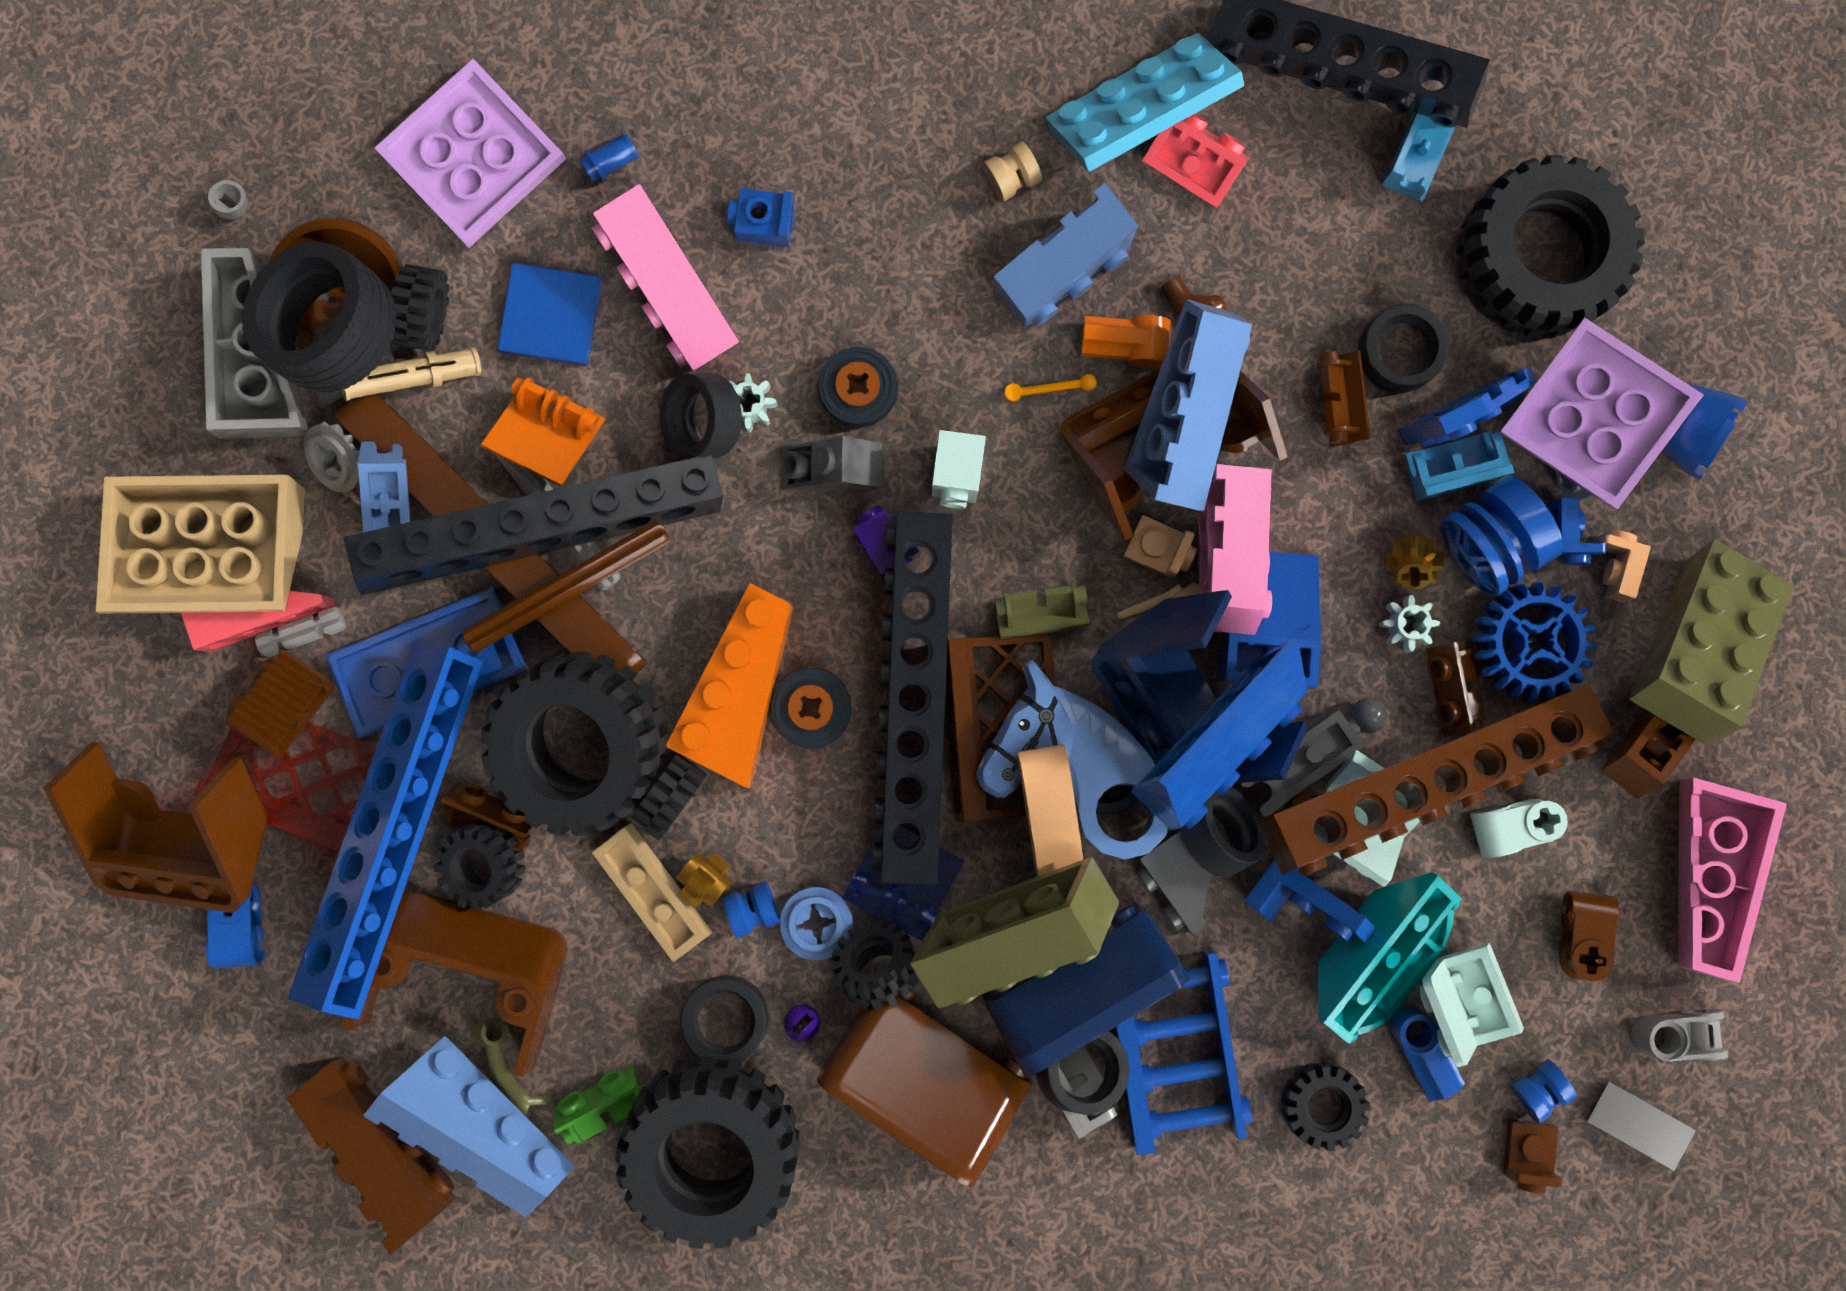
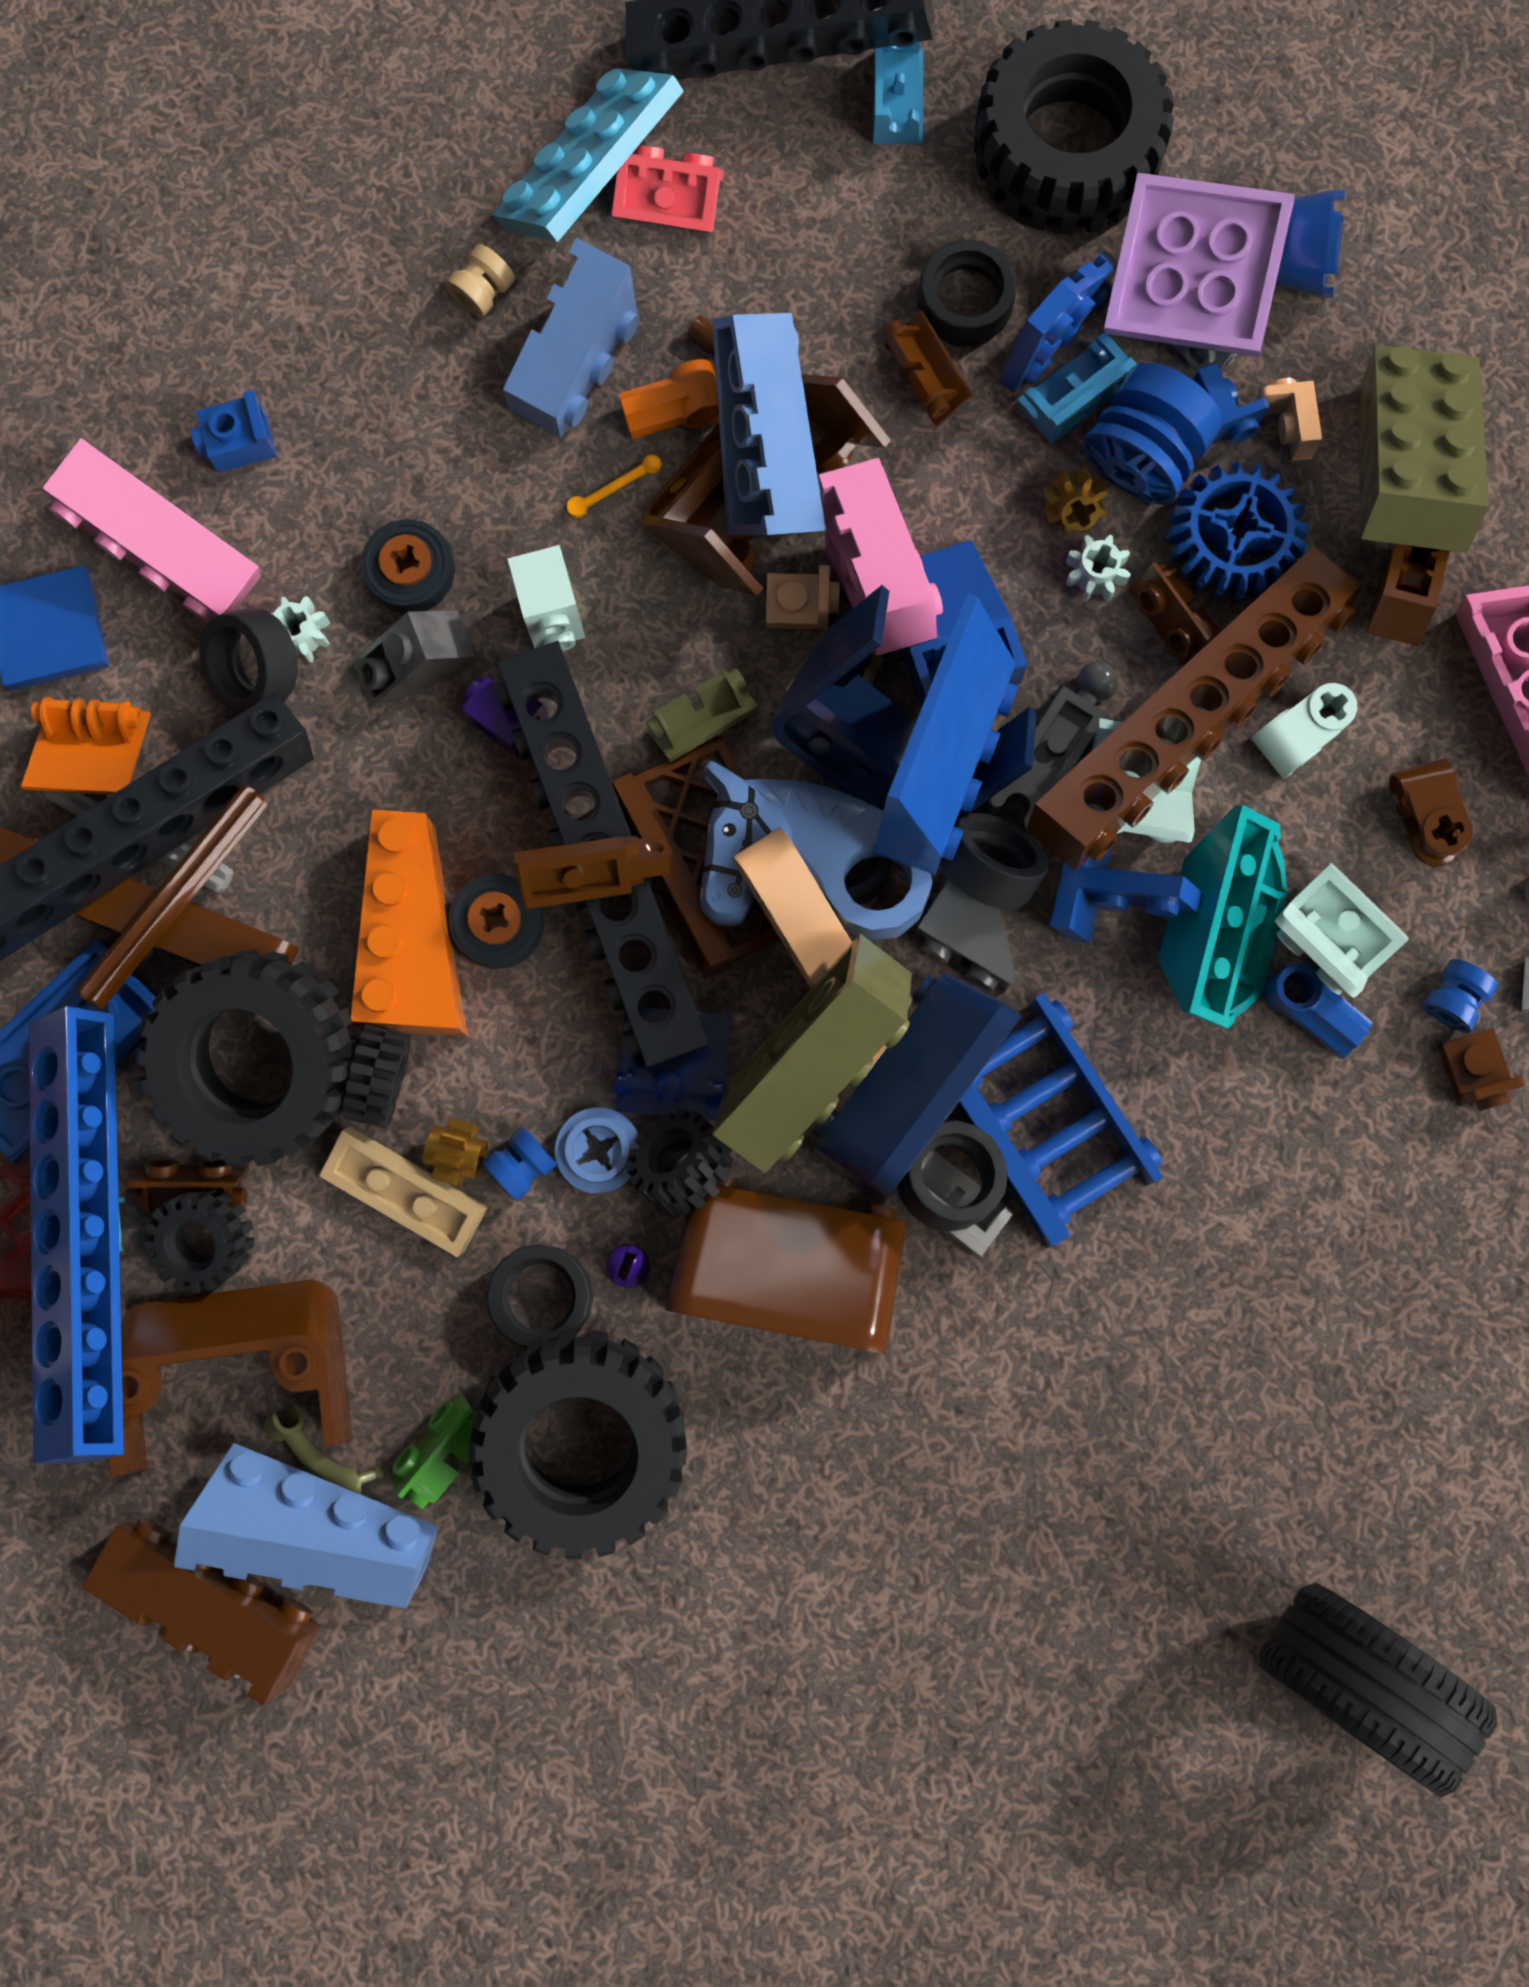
camera: 15 degrees left, 5 degrees down
(608, 158) = (44, 441): blue pin -> none
(901, 712) = (588, 869): none -> reddish brown hinge
(1351, 1114) = (1266, 1106): black tyre -> none

